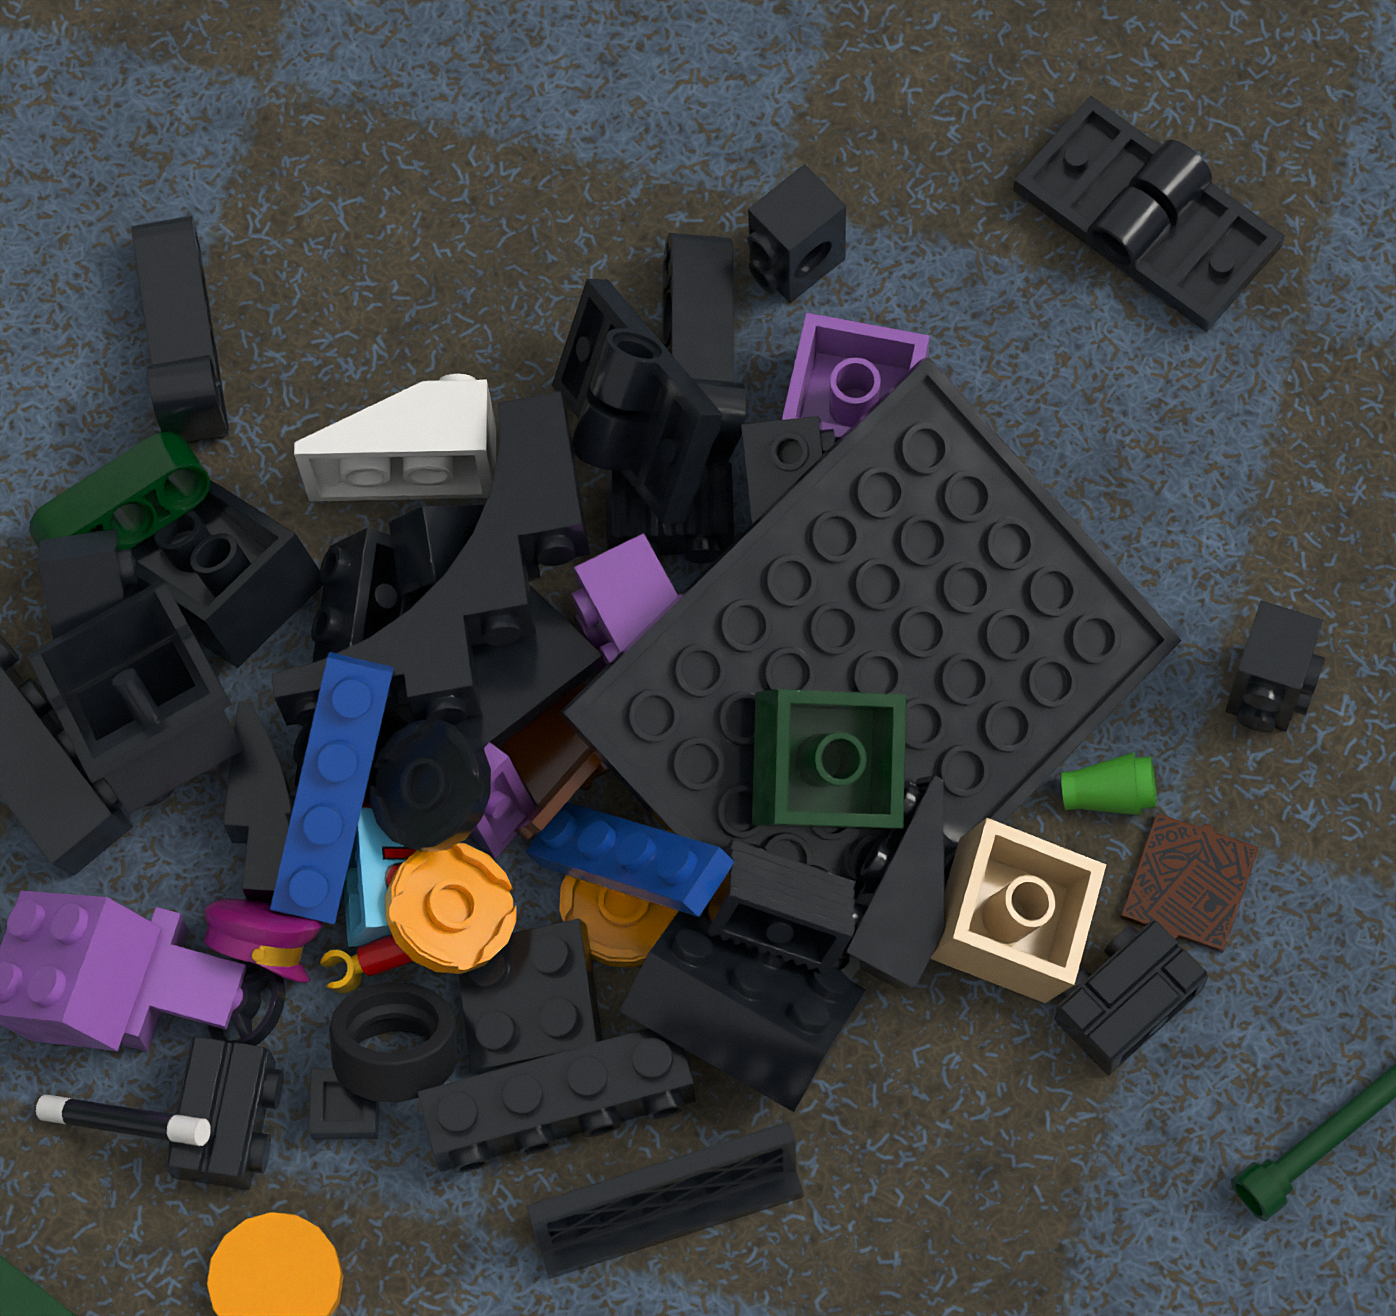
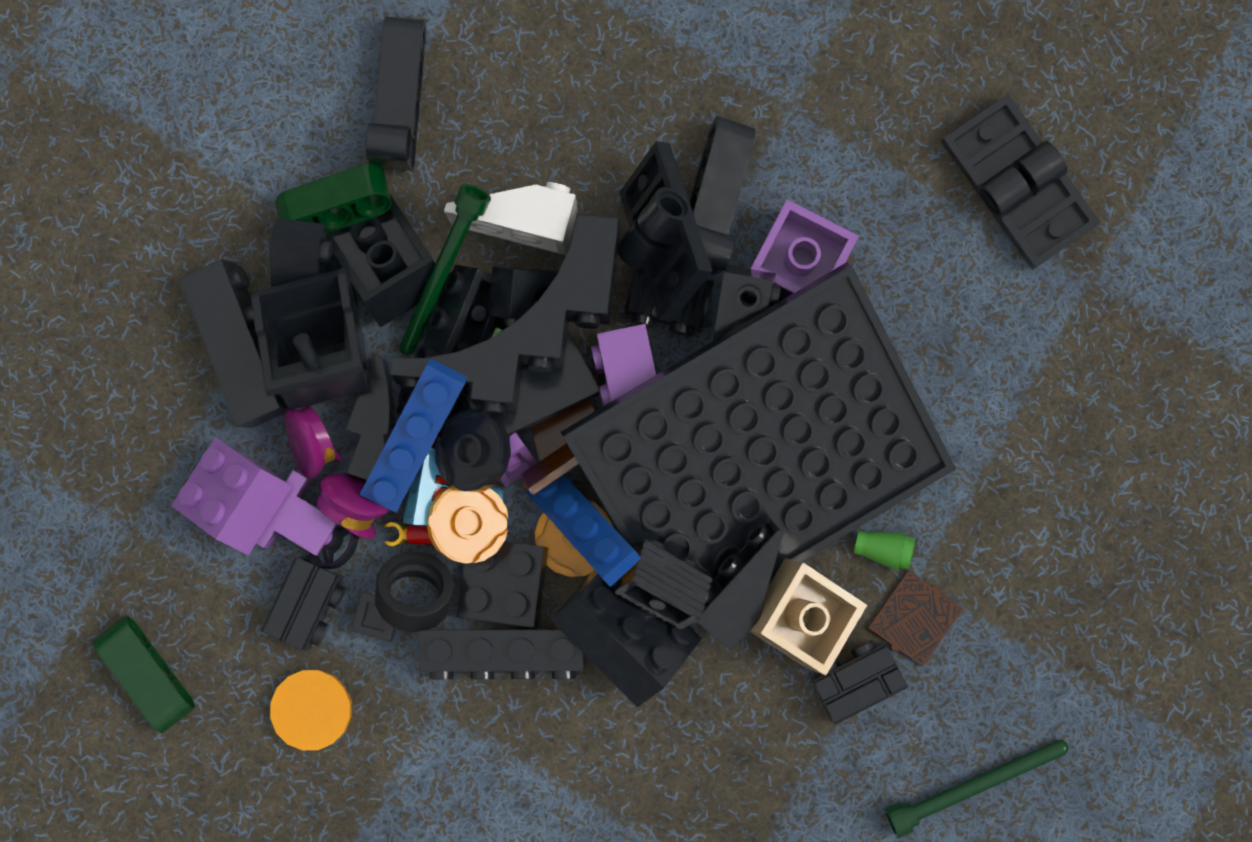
camera: 15 degrees right, 15 degrees up
(123, 1120) = (243, 595): black bar -> none
(170, 857) = (309, 441): none -> magenta piece
(331, 431) = (470, 204): none -> dark green piece
(667, 1200) = (548, 728): black fence -> none
(796, 234) = (795, 141): black brick -> none
(829, 759) = (717, 505): dark green brick -> none
(1276, 669) = (1007, 509): black brick -> none

